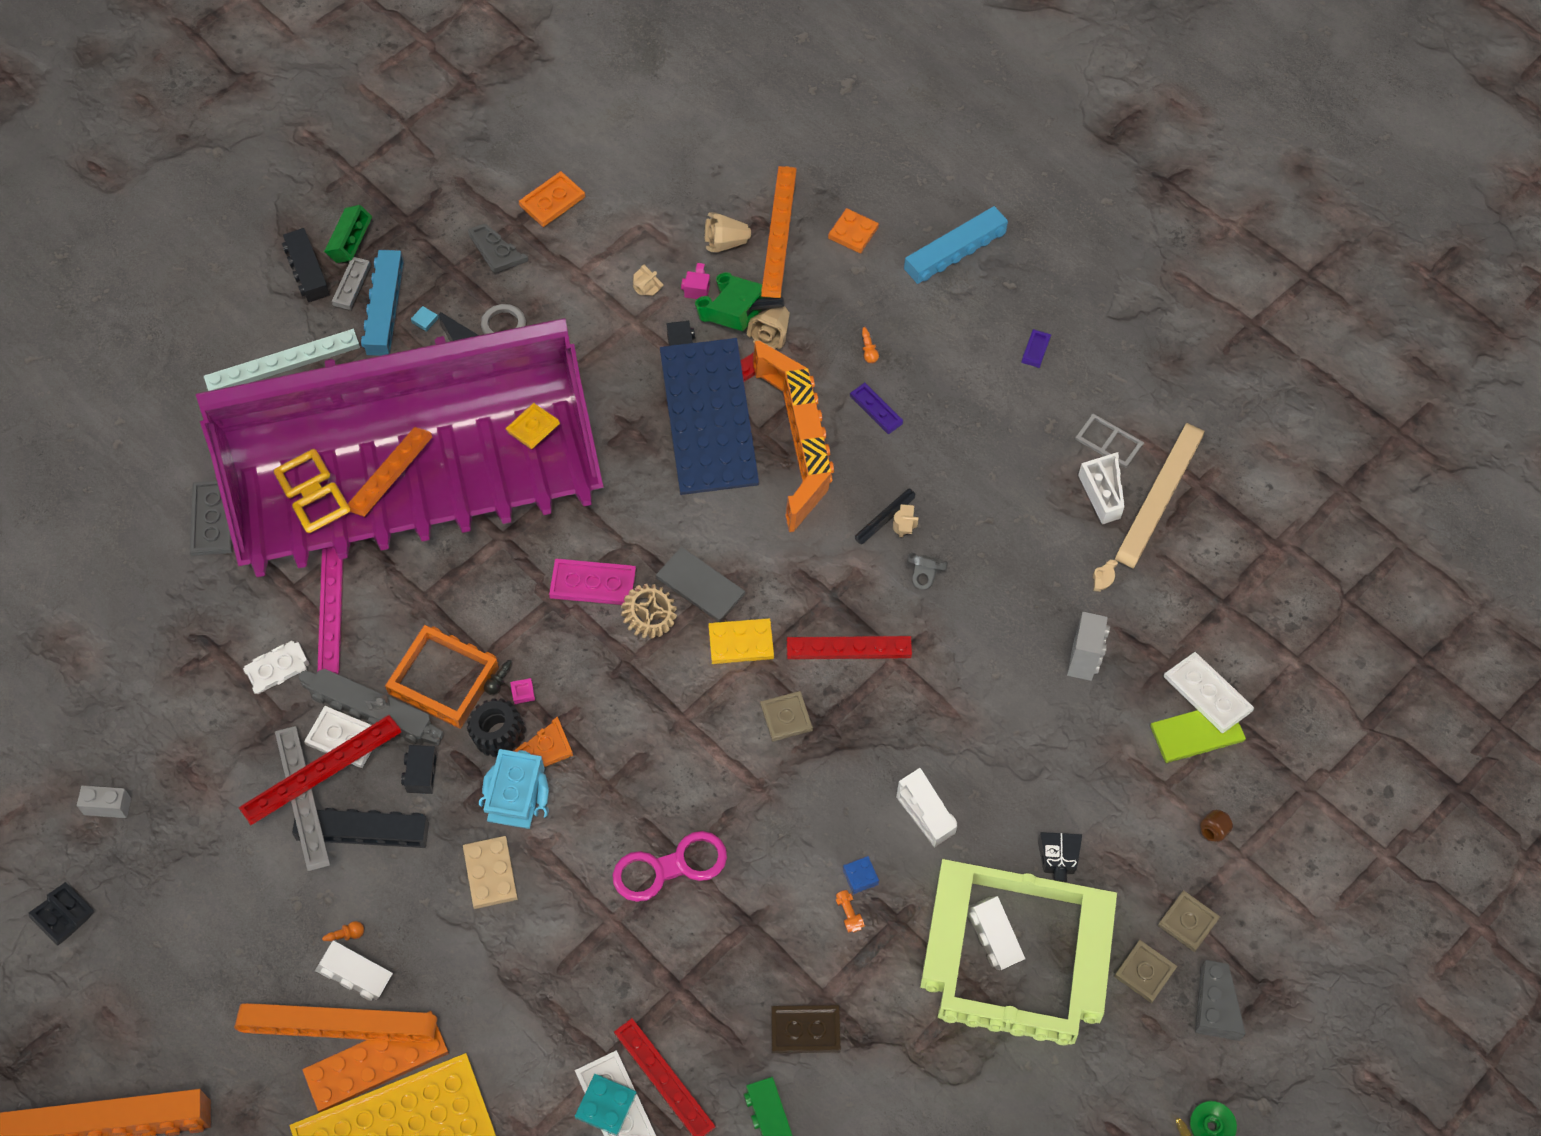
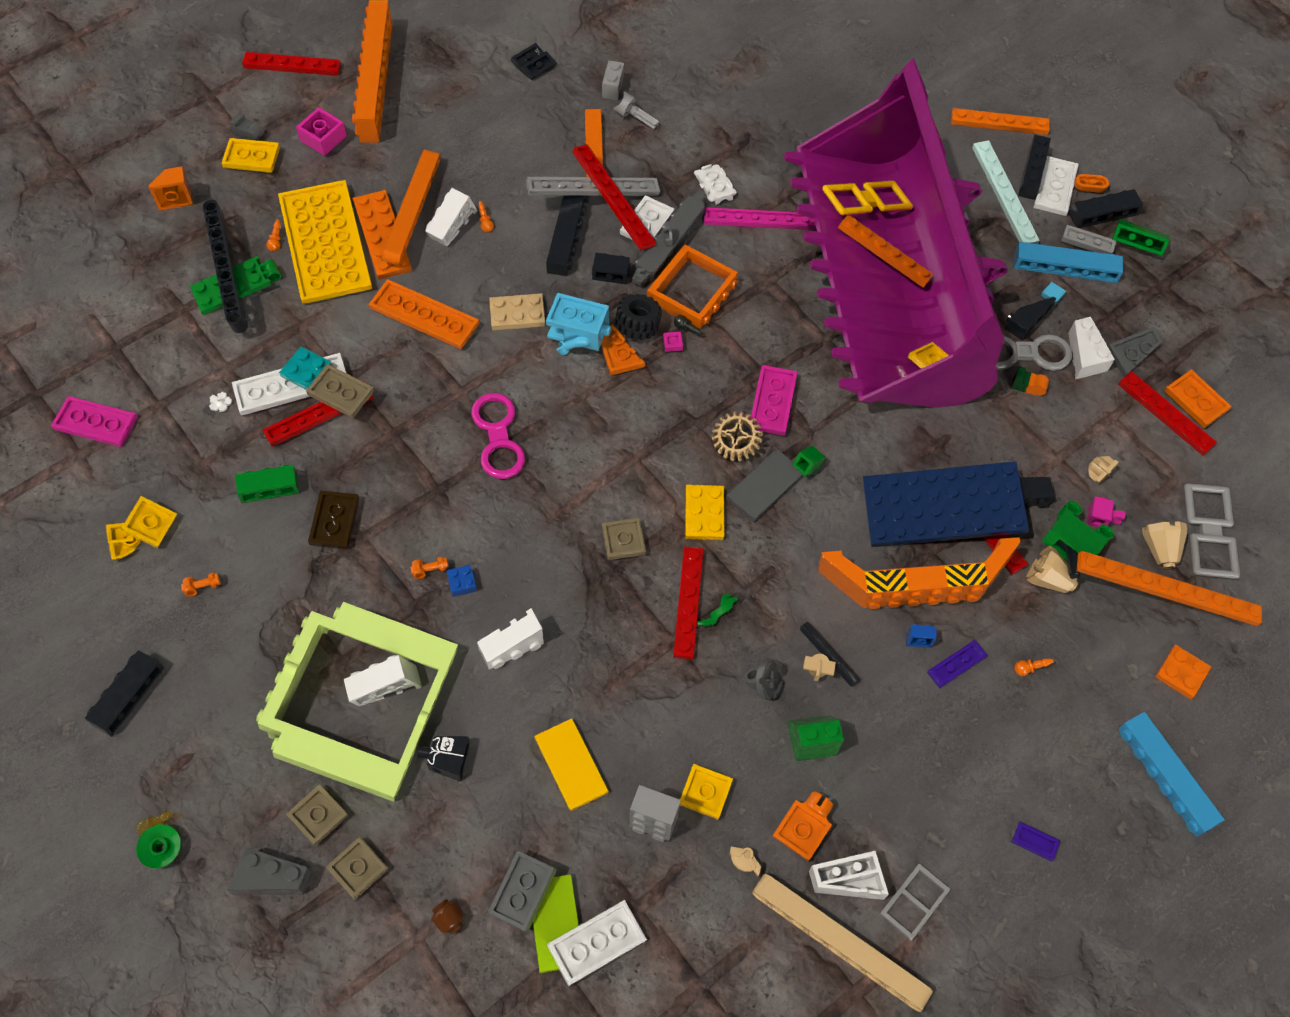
camera: 95 degrees right, 0 degrees up
(153, 777) = (627, 106): none -> light grey piece
(170, 366) = (1000, 121): none -> orange plate
(205, 818) = (593, 132): none -> orange tile
(246, 330) = (1034, 167): none -> black brick
(267, 279) = (1091, 183): none -> orange plate
(268, 312) = (1056, 186): none -> white tile
(500, 286) = (1089, 349): none -> white wedge
(504, 982) = (424, 314): none -> orange plate
(569, 226) = (1167, 413): none -> red plate
(636, 1052) = (340, 390): none -> dark tan plate
(671, 540) = (808, 461): none -> green brick
(702, 198) = (1211, 531): none -> light grey bar
(848, 611) = (725, 606): none -> green hair
(856, 435) = (921, 636): none -> blue piece
(977, 519) = (815, 737): none -> green slope
(1042, 738) = (571, 764): none -> yellow tile
(1047, 613) = (705, 791): none -> yellow plate
(1062, 526) = (805, 825): none -> orange plate
(1179, 760) = (522, 891): none -> dark grey plate

